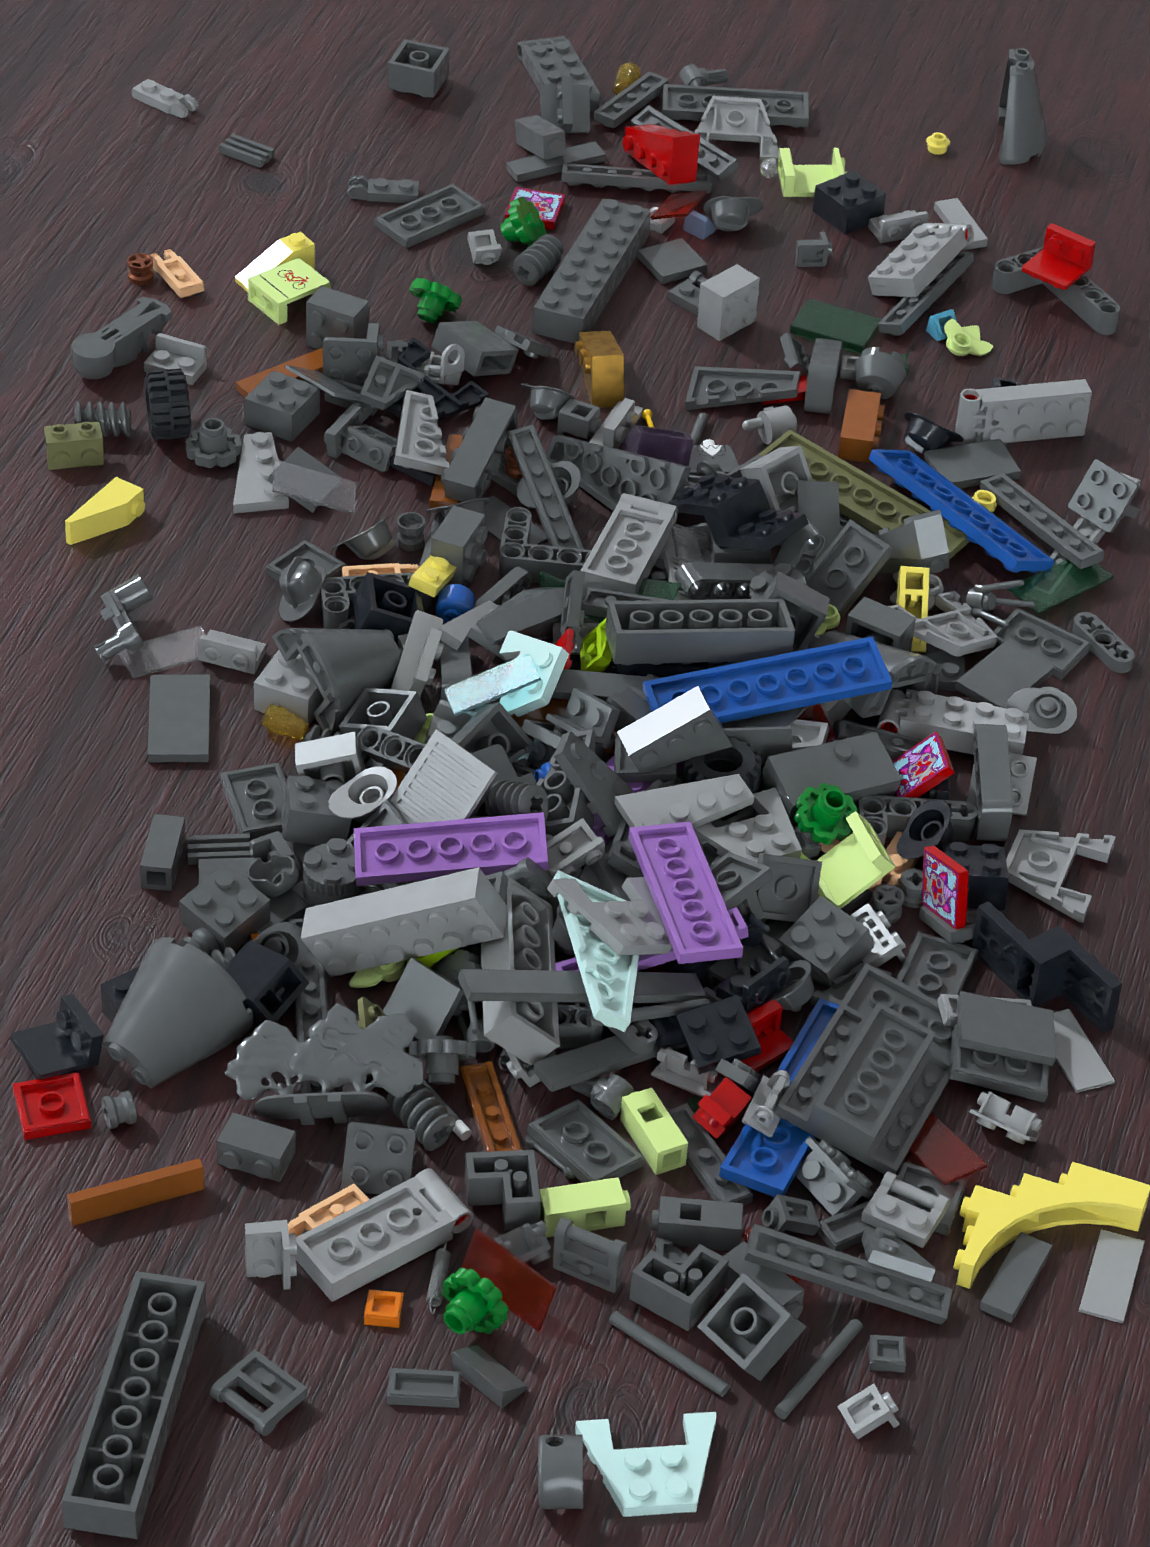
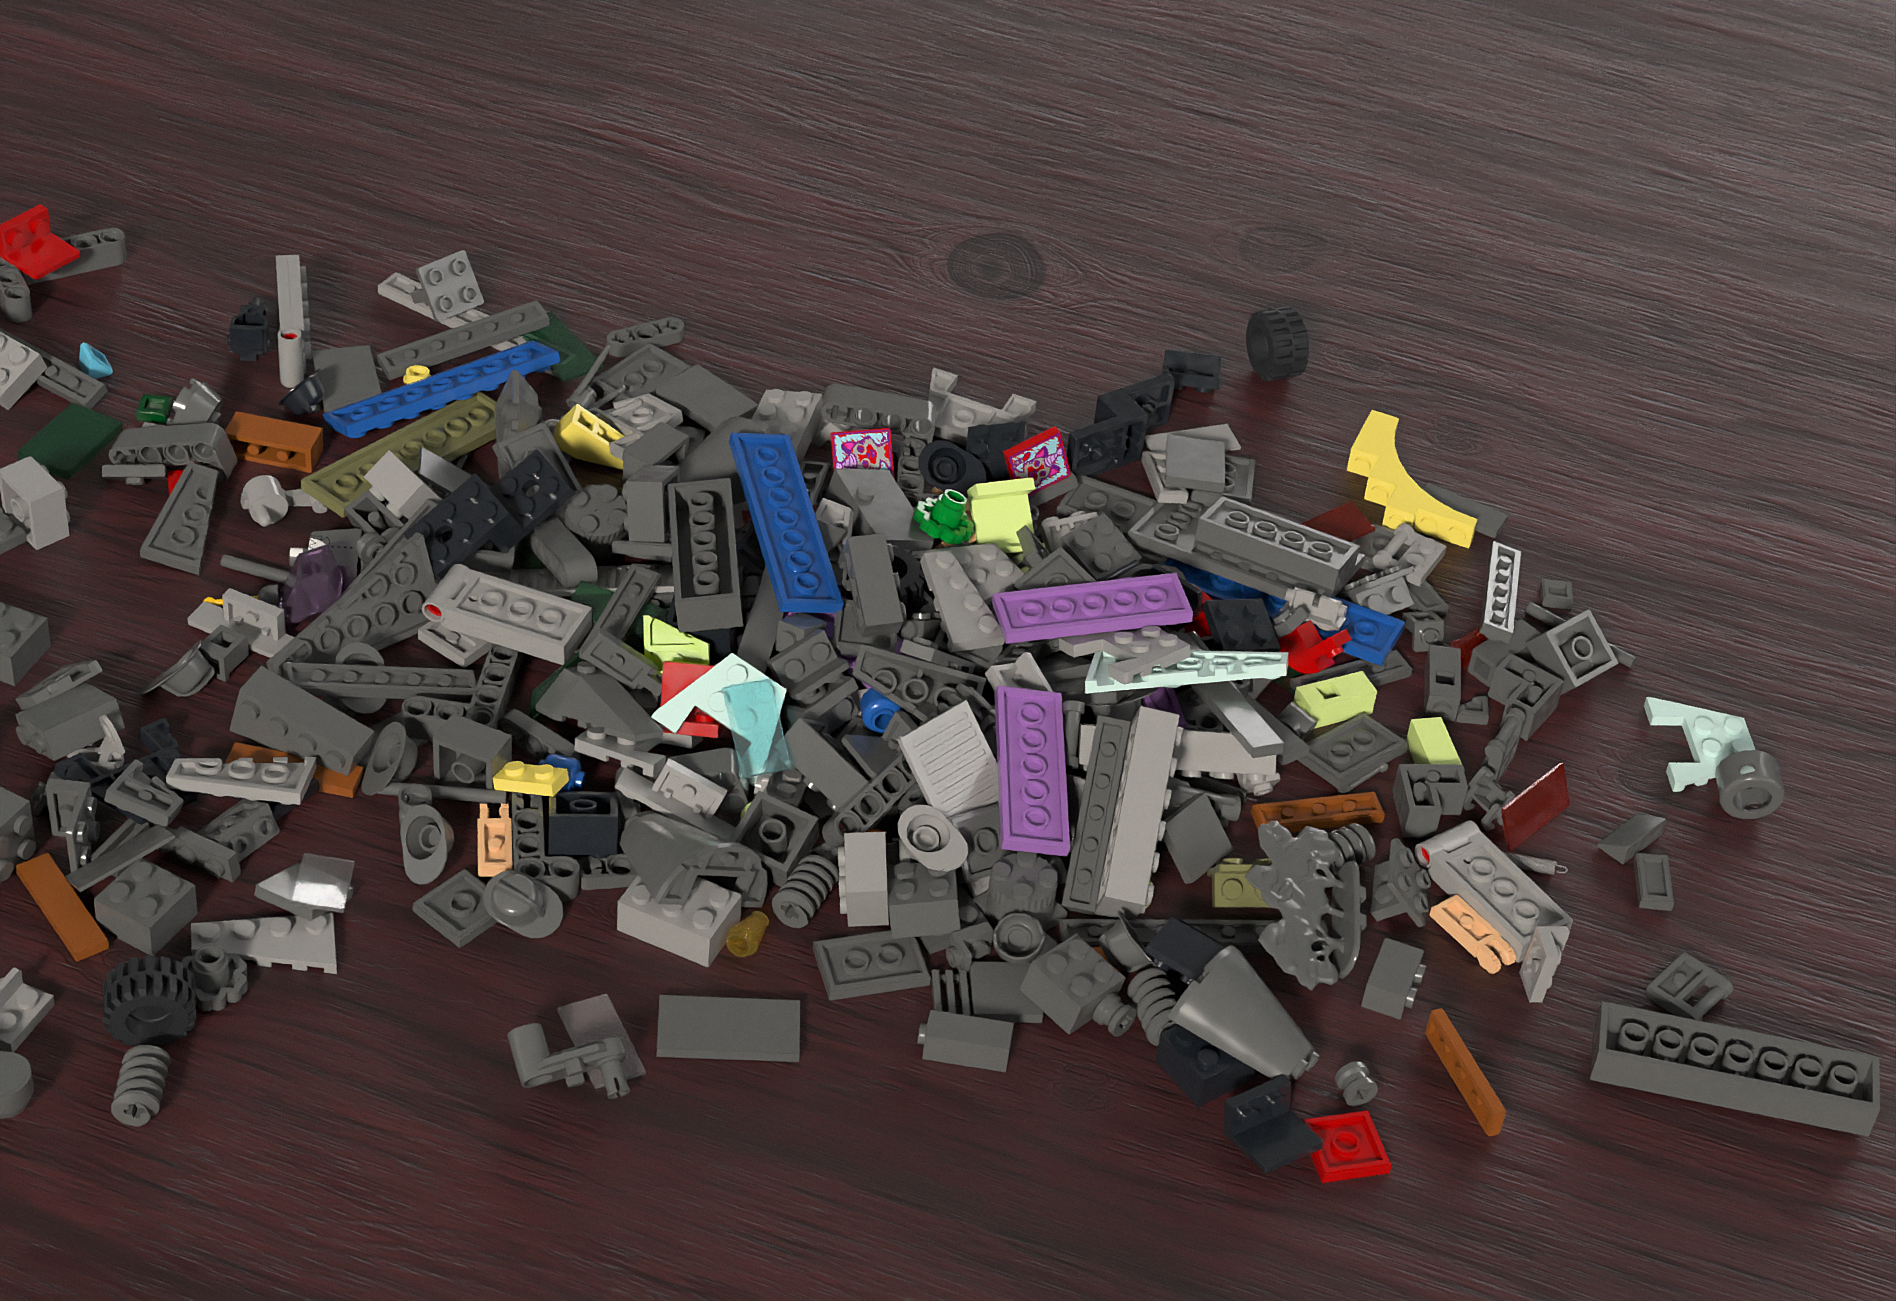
camera: 90 degrees left, 0 degrees up
(74, 445) = (195, 1107): olive bracket -> none
(106, 511) = (329, 1077): light yellow slope -> none
(231, 651) = (616, 976): light grey bracket -> none
(383, 1308) = (1570, 900): orange tile -> none
(442, 1057) = (1258, 812): dark grey plant -> none
(473, 1303) = (1579, 828): green plant -> none
(602, 367) = (124, 620): pearl gold wedge -> none
(669, 1353) = (1582, 722): dark grey bar -> none
(868, 1411) = (1629, 607): light grey bracket -> none
(889, 1251) = (1465, 567): dark grey wing -> none
(965, 340) = (131, 352): yellowish green plate -> none
(993, 1114) = (1292, 484): light grey hinge -> none
(1048, 707) = (755, 377): light grey piece -> none
(1111, 1276) = (1446, 461): light grey piece -> none

